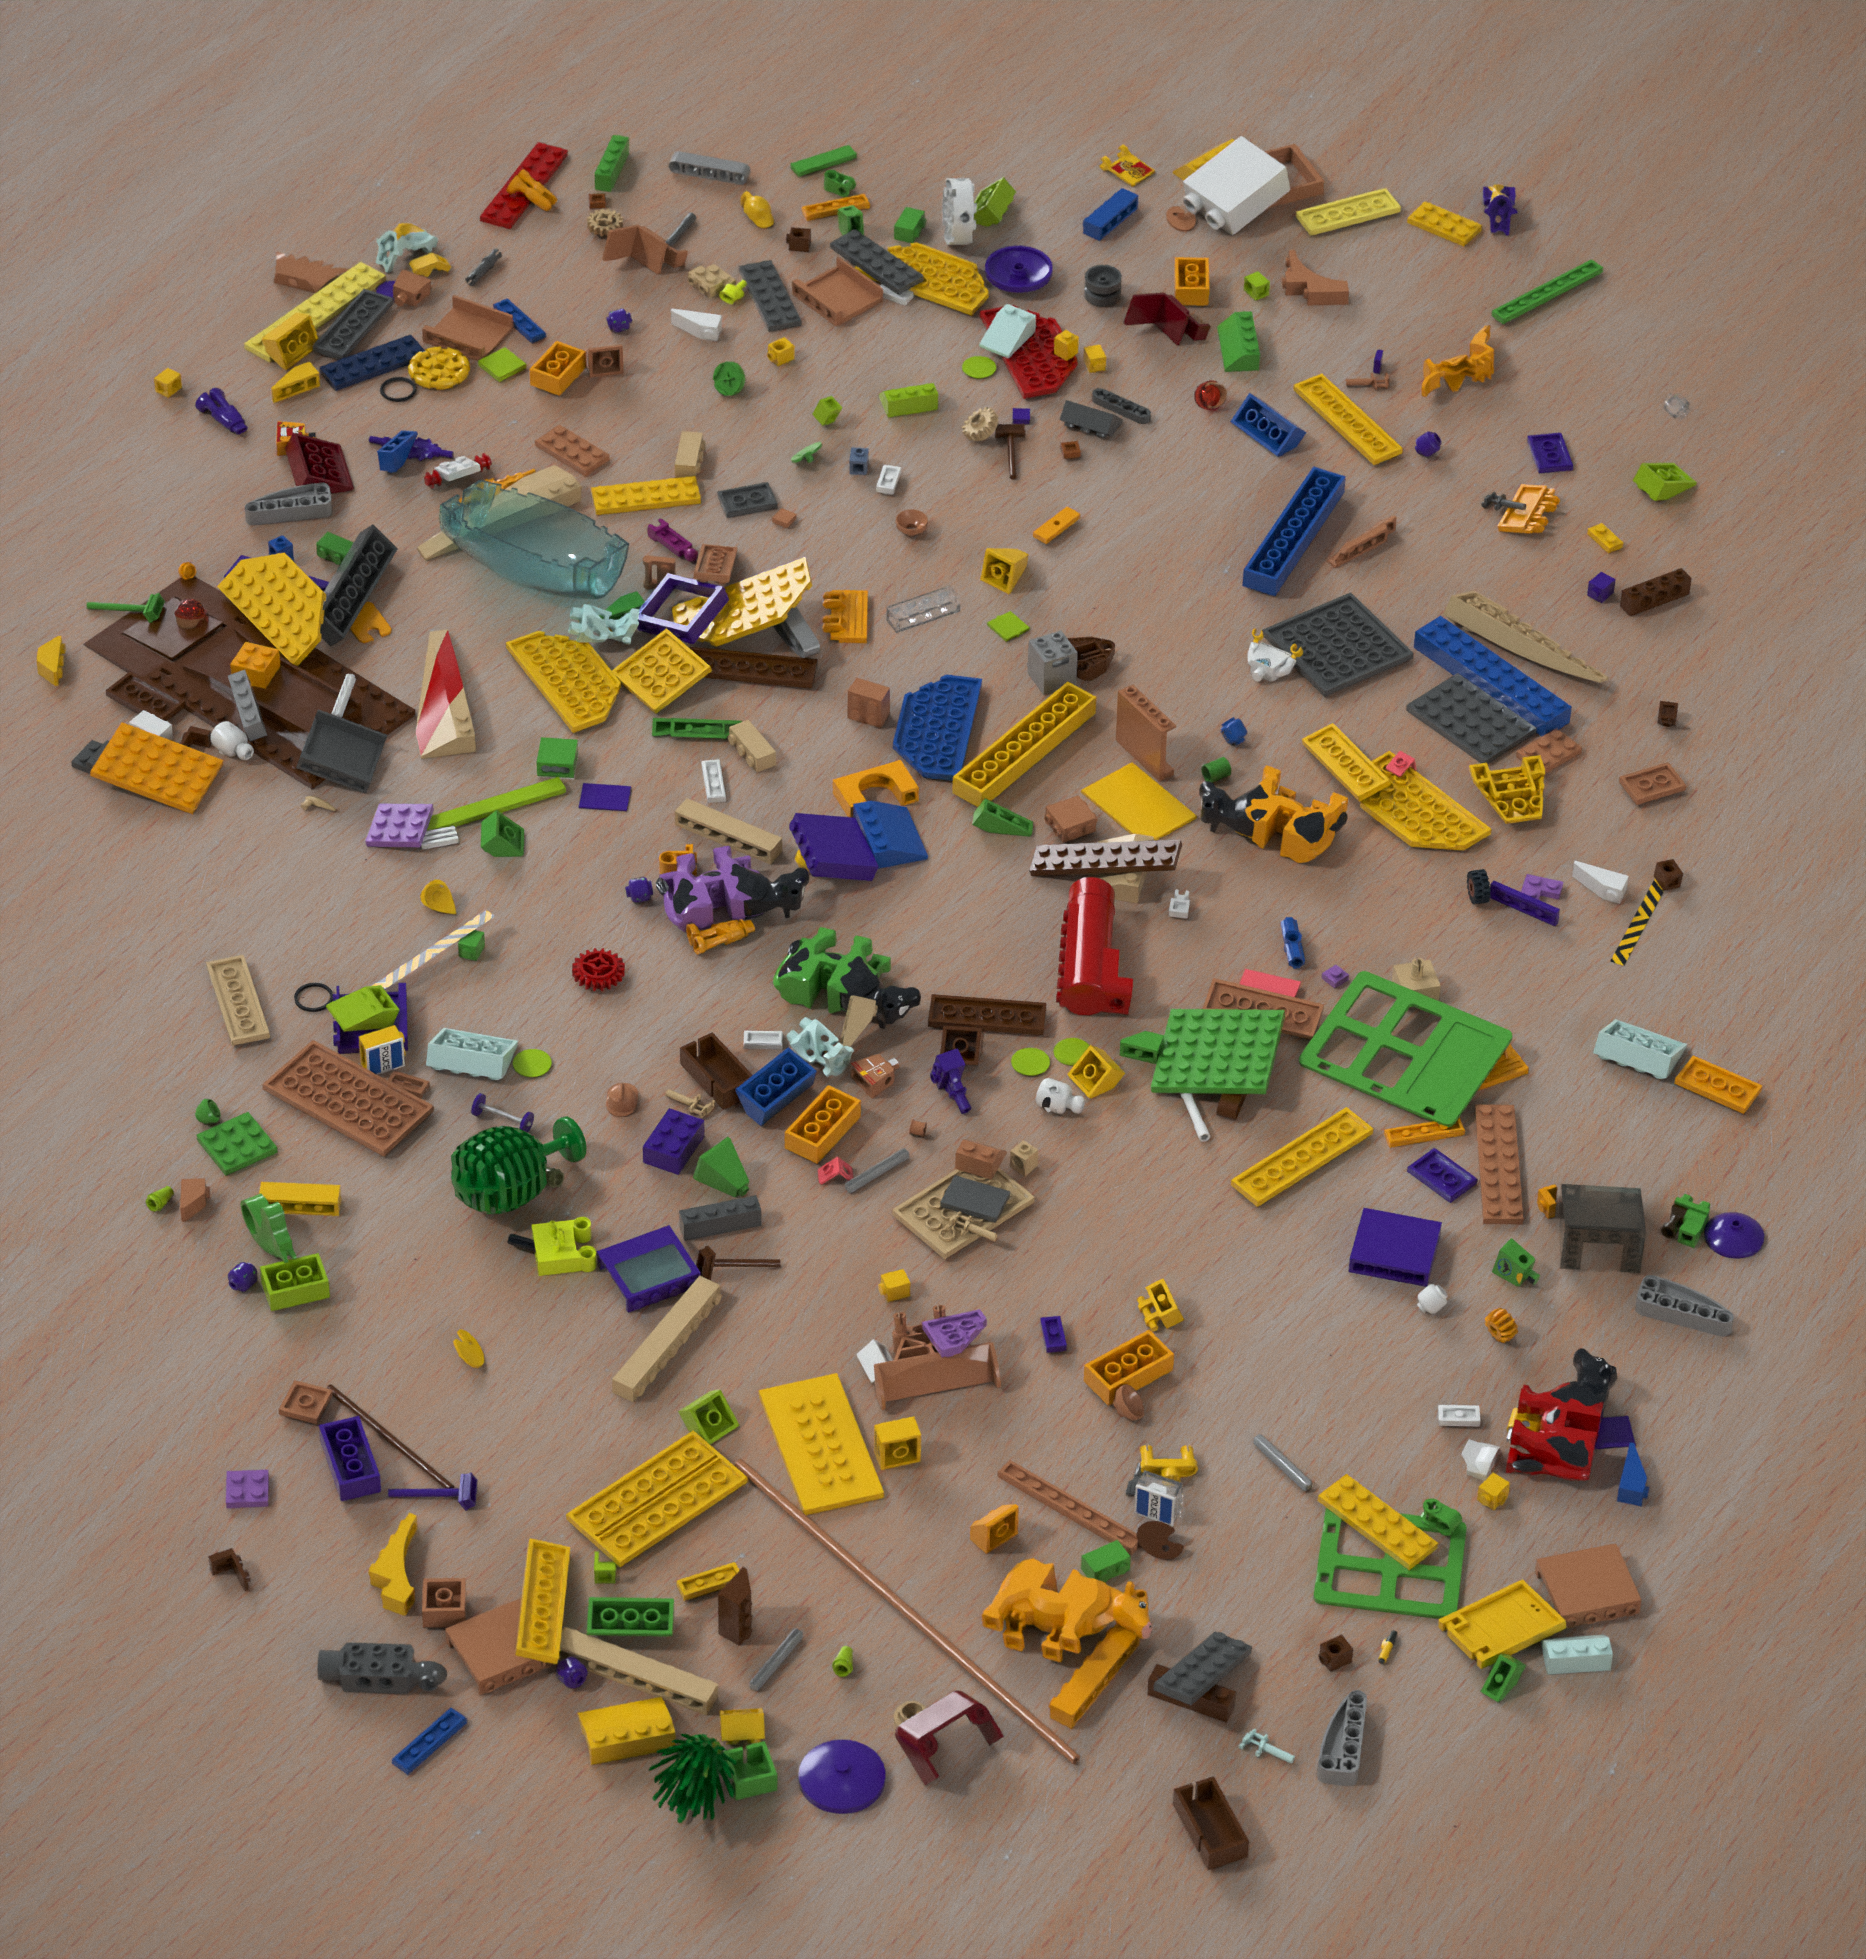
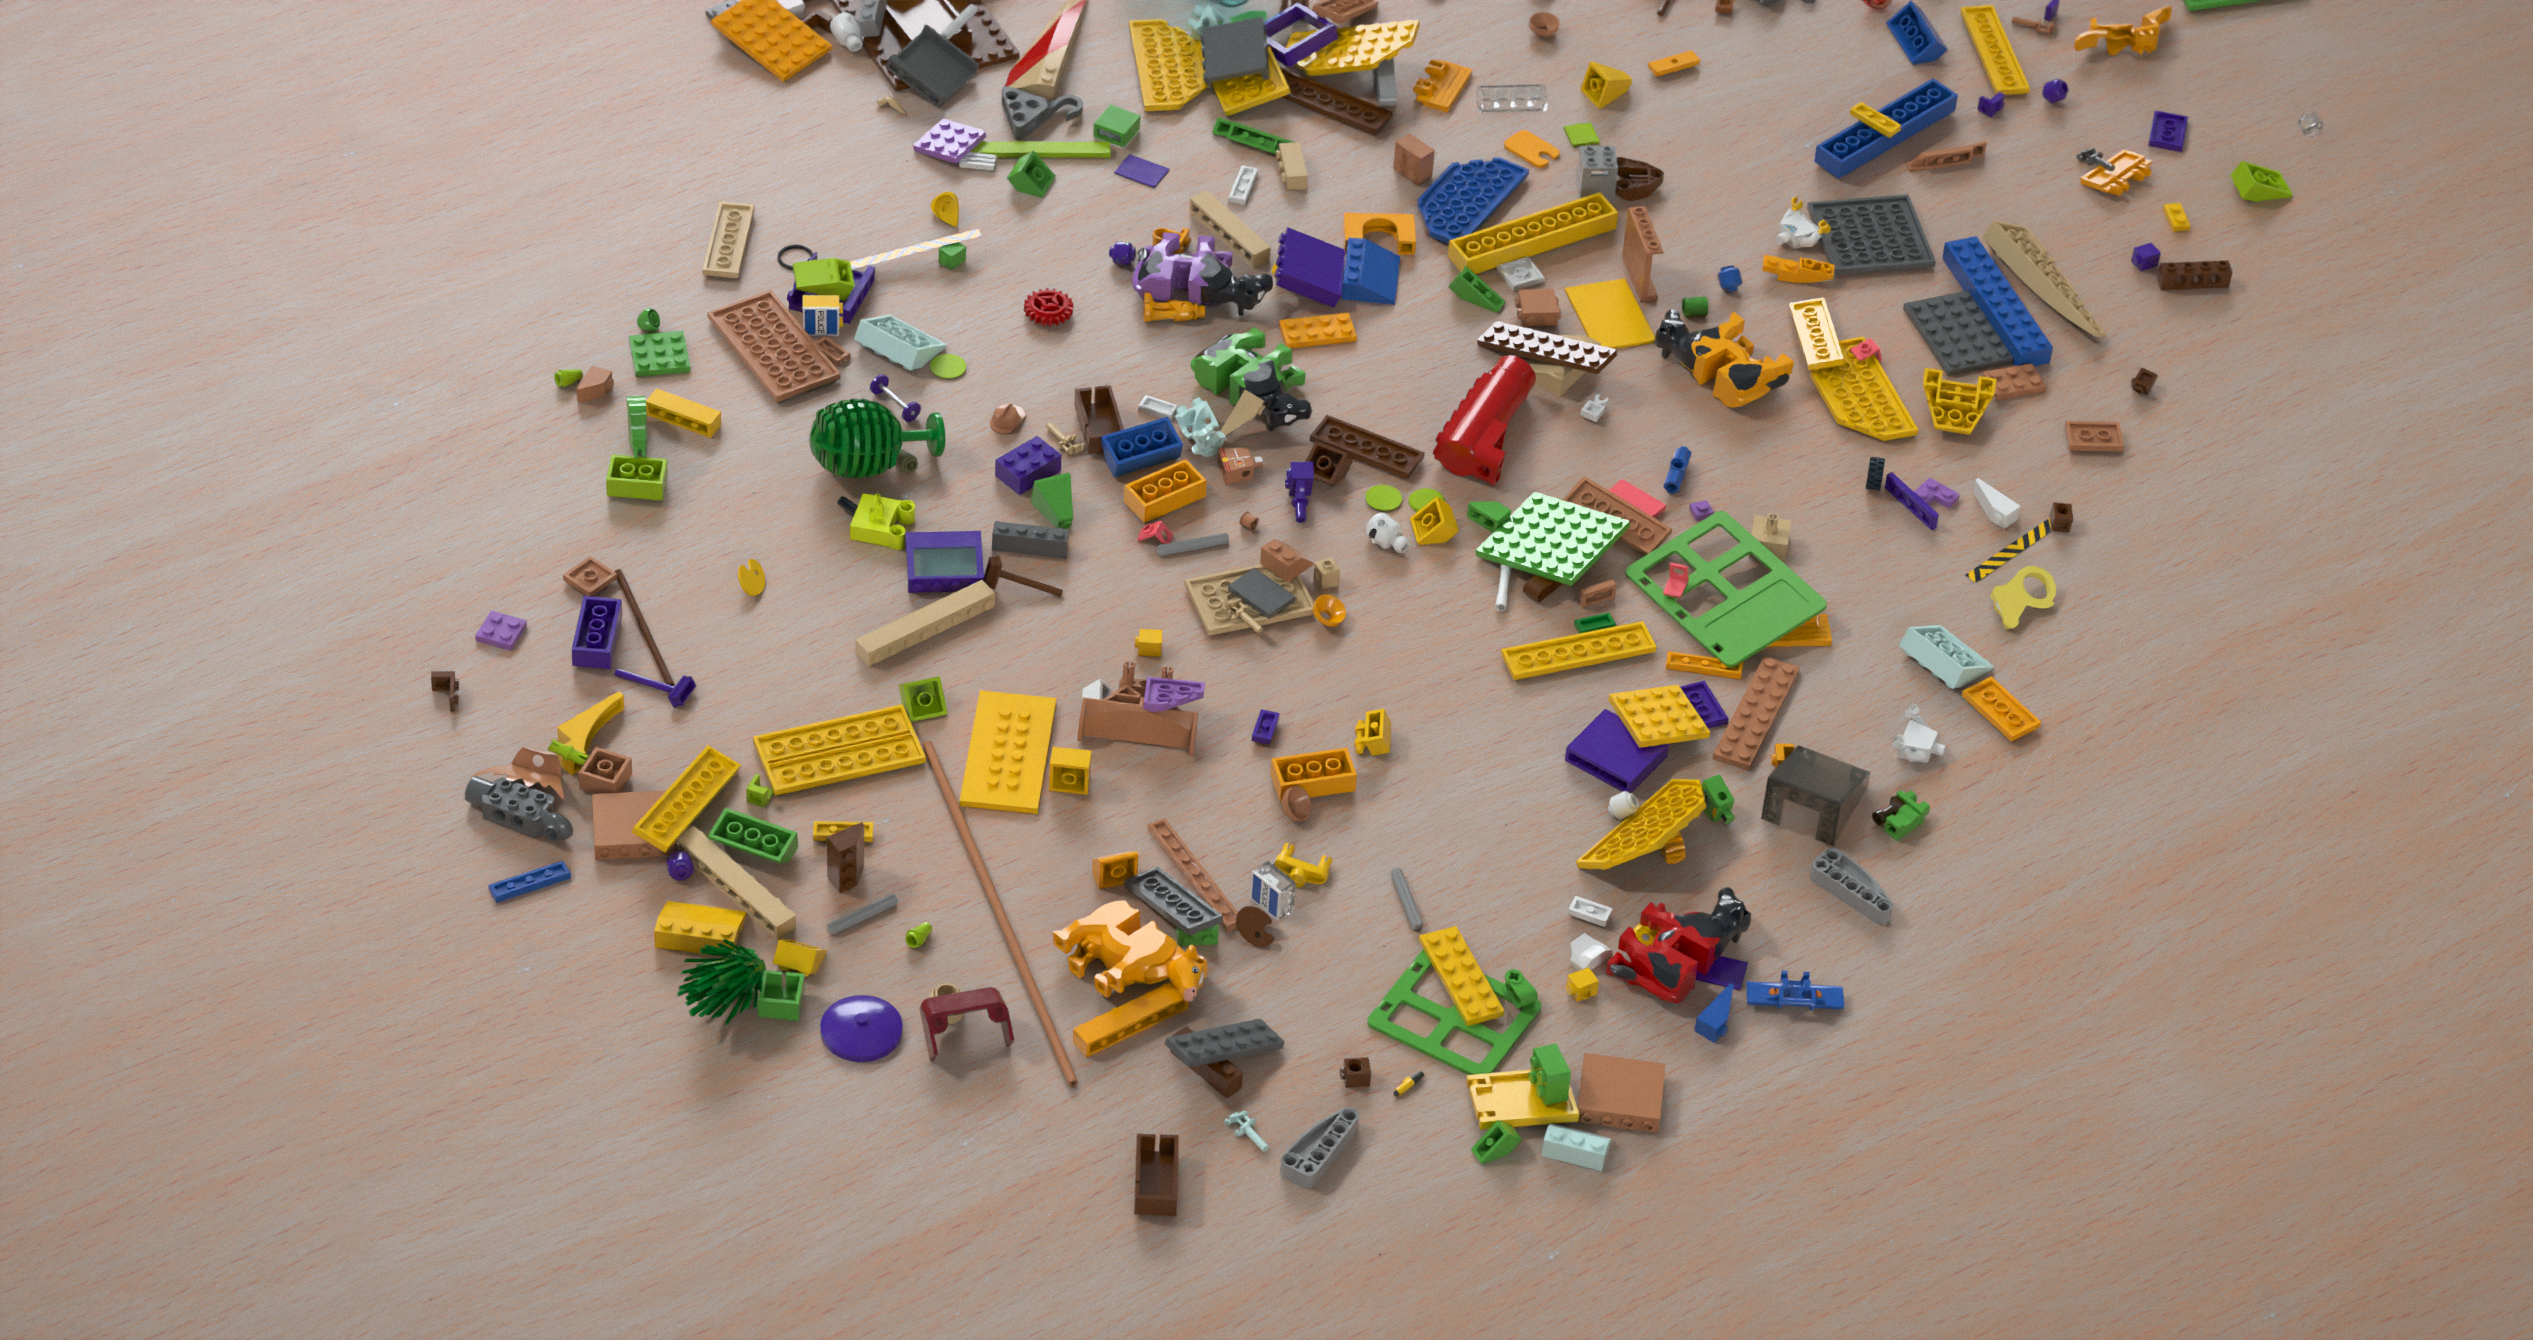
camera: 20 degrees right, 0 degrees up
(242, 1276) = (597, 460): dark purple head -> none
(357, 1628) = (524, 768): none -> nougat piece
(399, 1594) = (568, 752): none -> lime pin
(463, 767) = (1034, 110): none -> dark grey piece
(636, 643) = (1235, 50): none -> dark grey panel
(871, 909) = (1317, 330): none -> light orange plate
(967, 655) = (1529, 147): none -> light orange piece
(1031, 788) = (1520, 274): none -> white tile
(1051, 1192) = (1330, 606): none -> light orange piece
(1072, 1541) = (1173, 901): none -> dark grey plate
(1286, 526) = (1875, 119): none -> yellow plate
(1288, 1093) = (1597, 593): none -> nougat tile
(1293, 703) = (1798, 272): none -> light orange slope
(1300, 1124) = (1594, 623): none -> green tile
(1358, 1057) = (1676, 582): none -> coral bracket
(1375, 479) = (1991, 106): none -> dark purple bracket
(1417, 1198) = (1659, 716): none -> yellow plate
(1473, 1313) = (1650, 826): none -> yellow plate
(1522, 1591) = (1550, 1074): none -> bright green brick
(1662, 1141) = (1918, 739): none -> white torso
(1671, 972) = (2012, 597): none -> light yellow animal
(1690, 1432) = (1795, 993): none -> blue piece
(1734, 1235) = (1940, 841): dark purple dish -> none

